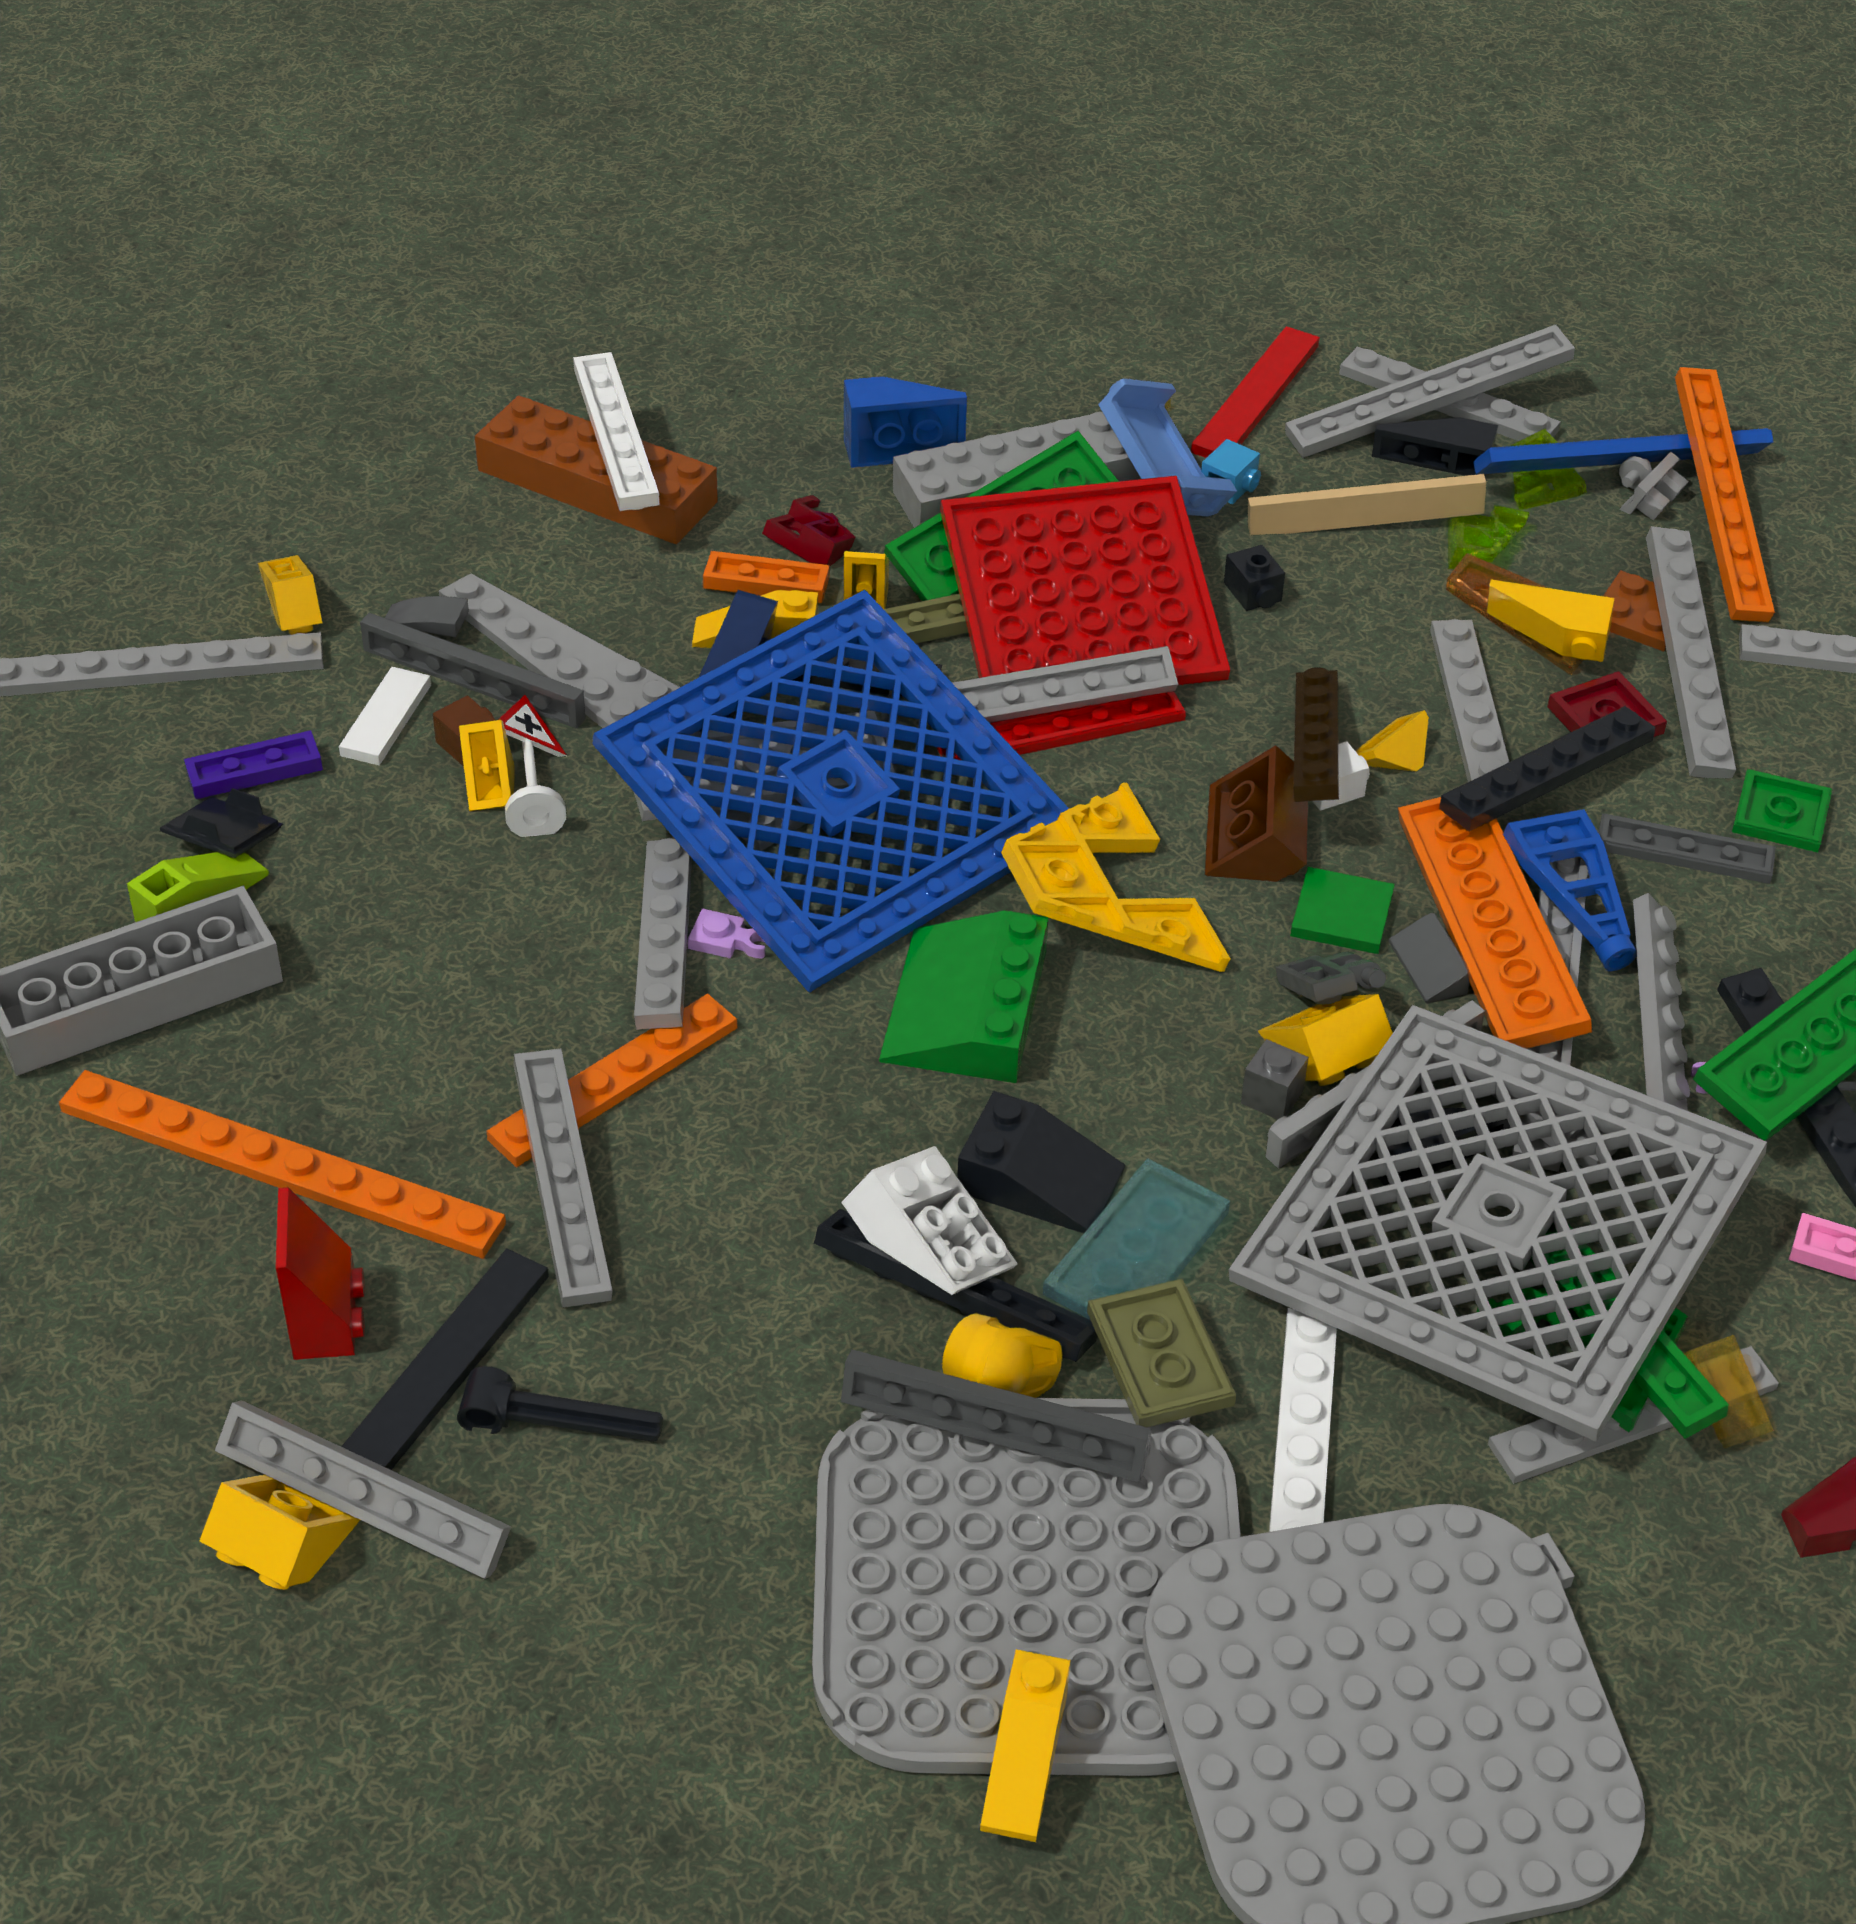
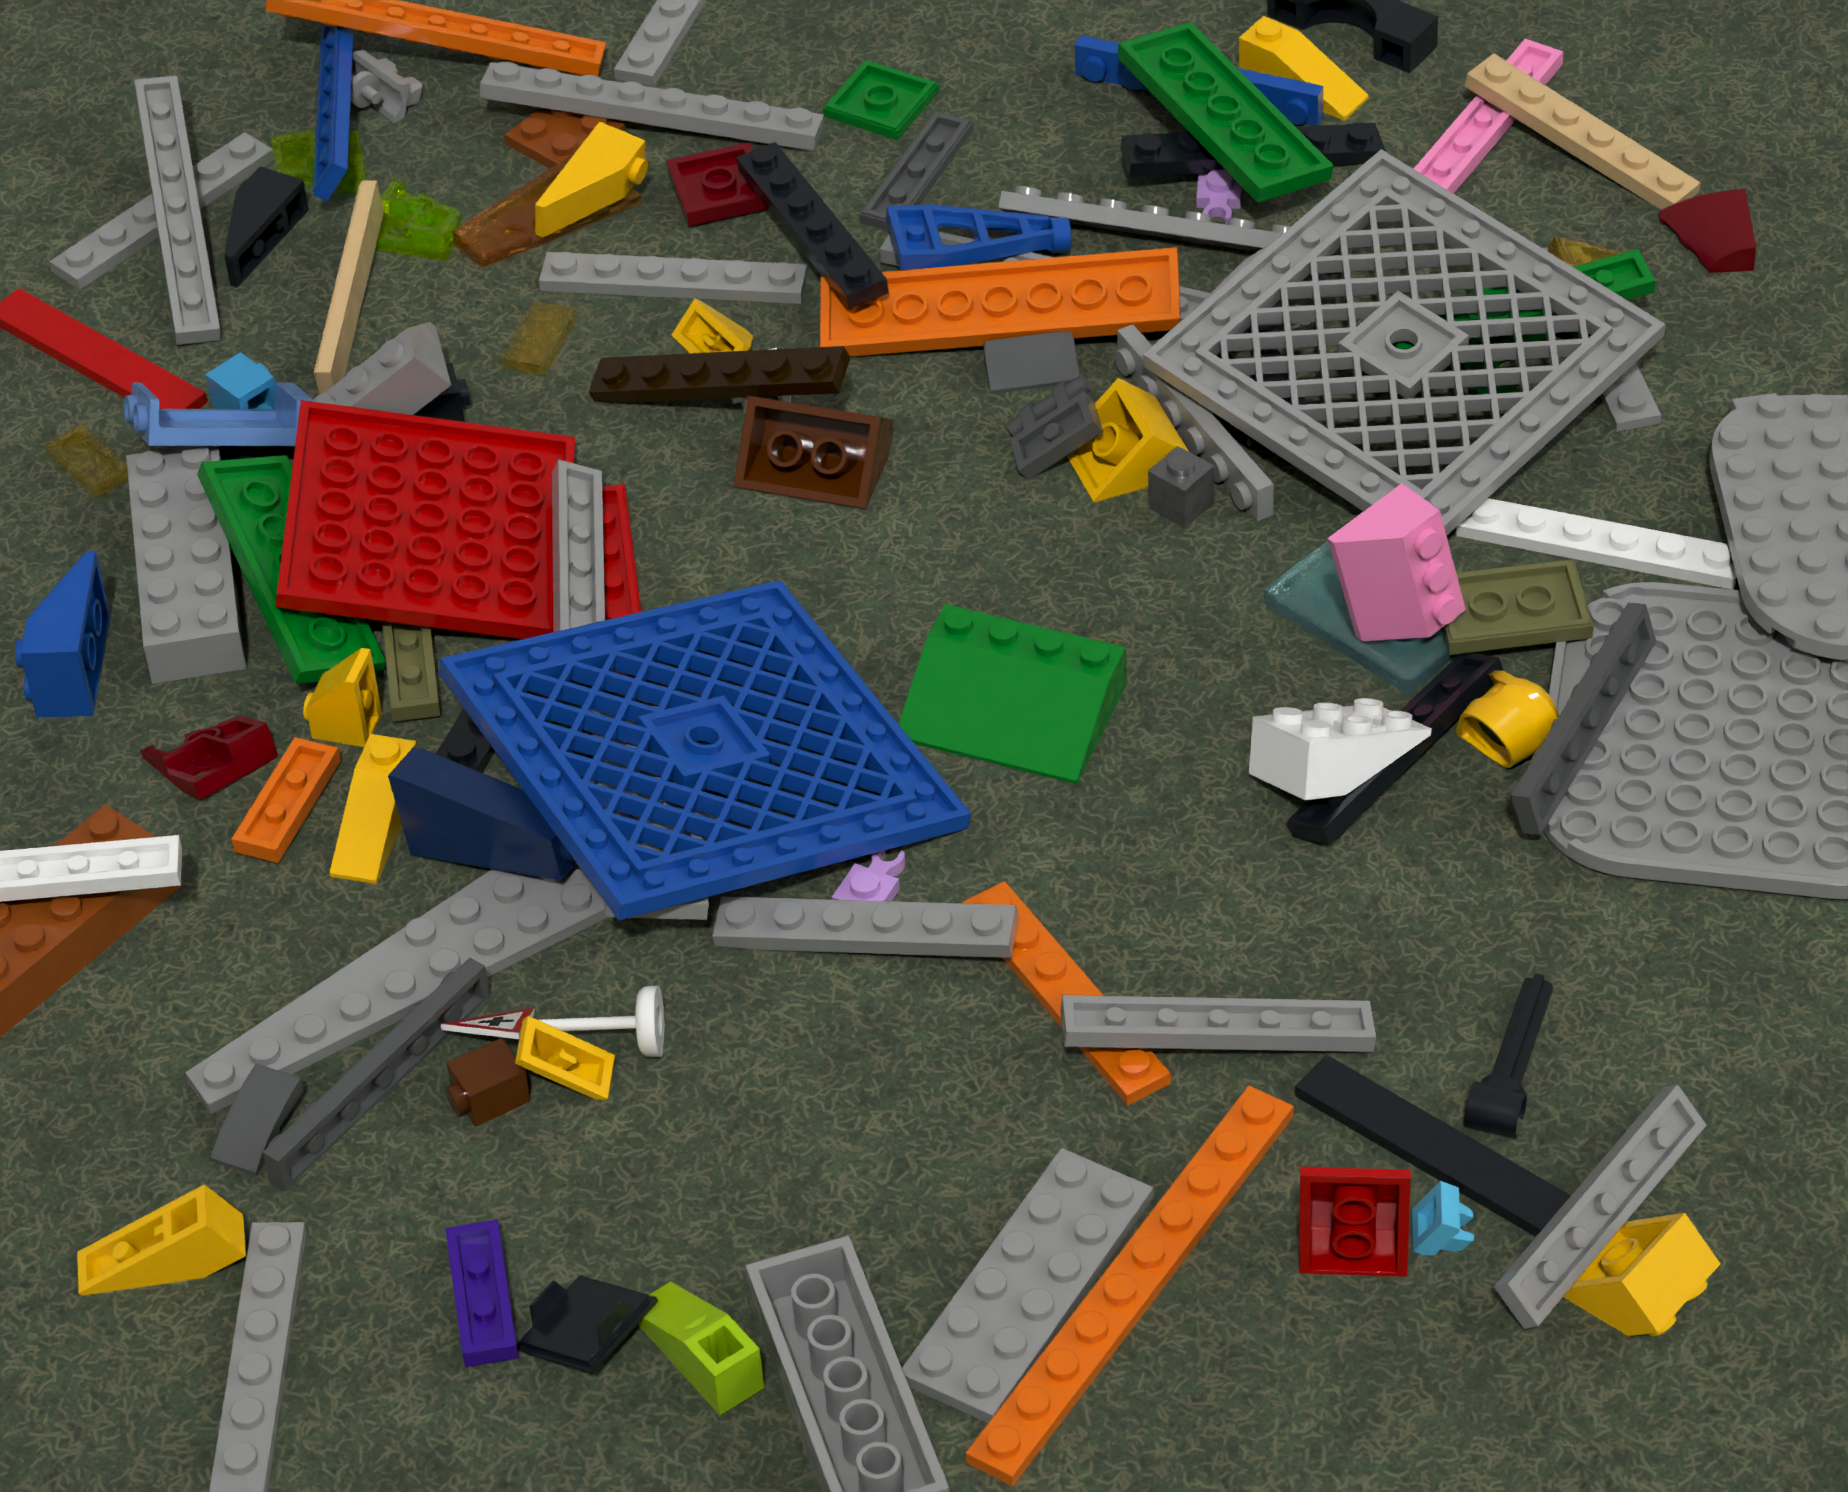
camera: 75 degrees left, 0 degrees up
(278, 1092) = (1026, 1285): none -> light grey plate
(334, 1364) = (1438, 1221): none -> medium azure tile
(385, 716) = (421, 1168): white tile -> none
(1036, 1165) = (1250, 674): black slope -> none
(1067, 884) = (882, 587): yellow wing -> none
(1128, 1213) = (1397, 569): none -> bright pink slope
(1235, 529) = (397, 377): none -> light grey slope
(1342, 910) = (946, 415): green tile -> none
(1362, 636) = (539, 338): none -> clear yellow tile

